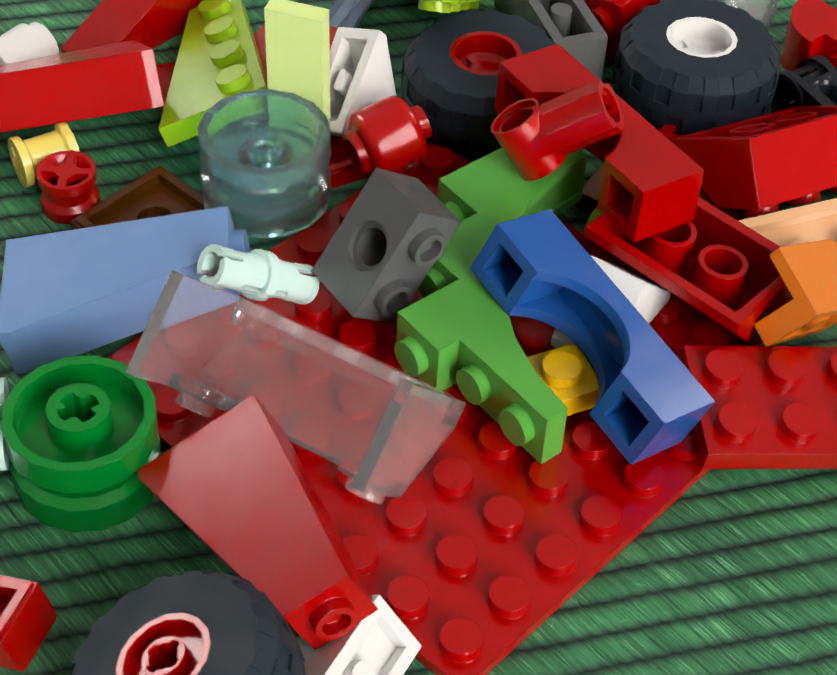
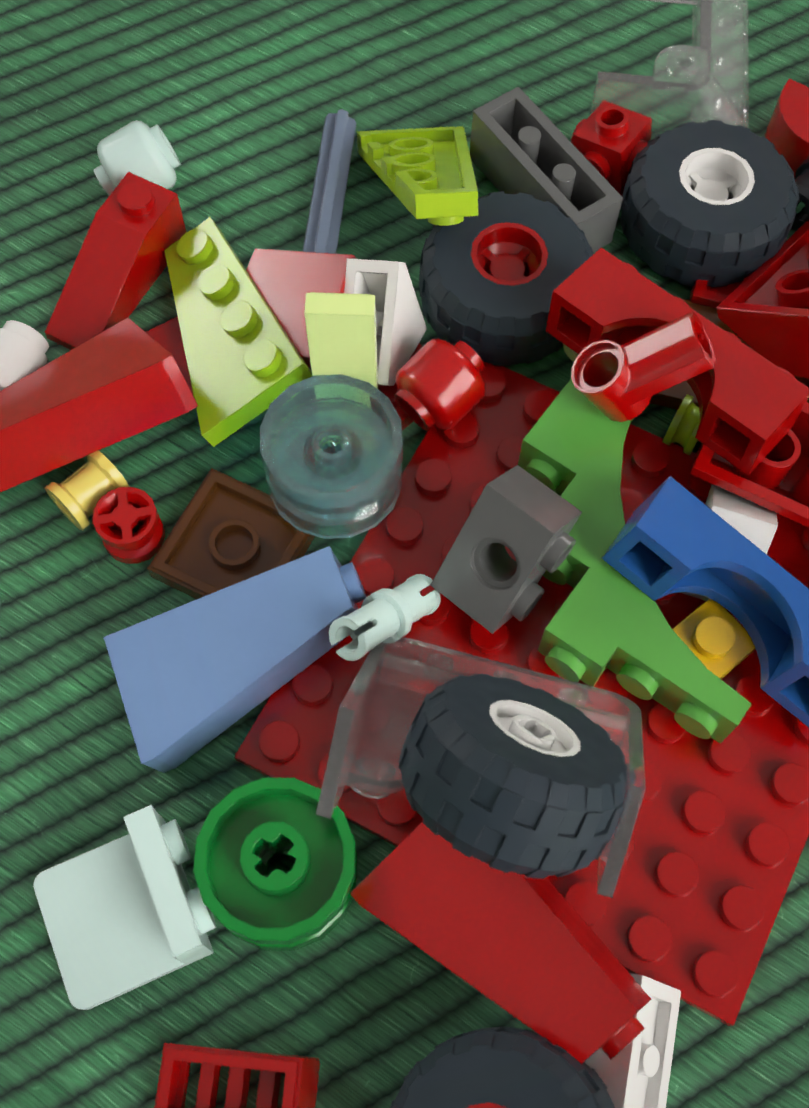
camera: 15 degrees left, 20 degrees up
(303, 373) = (513, 776): none -> black wheel

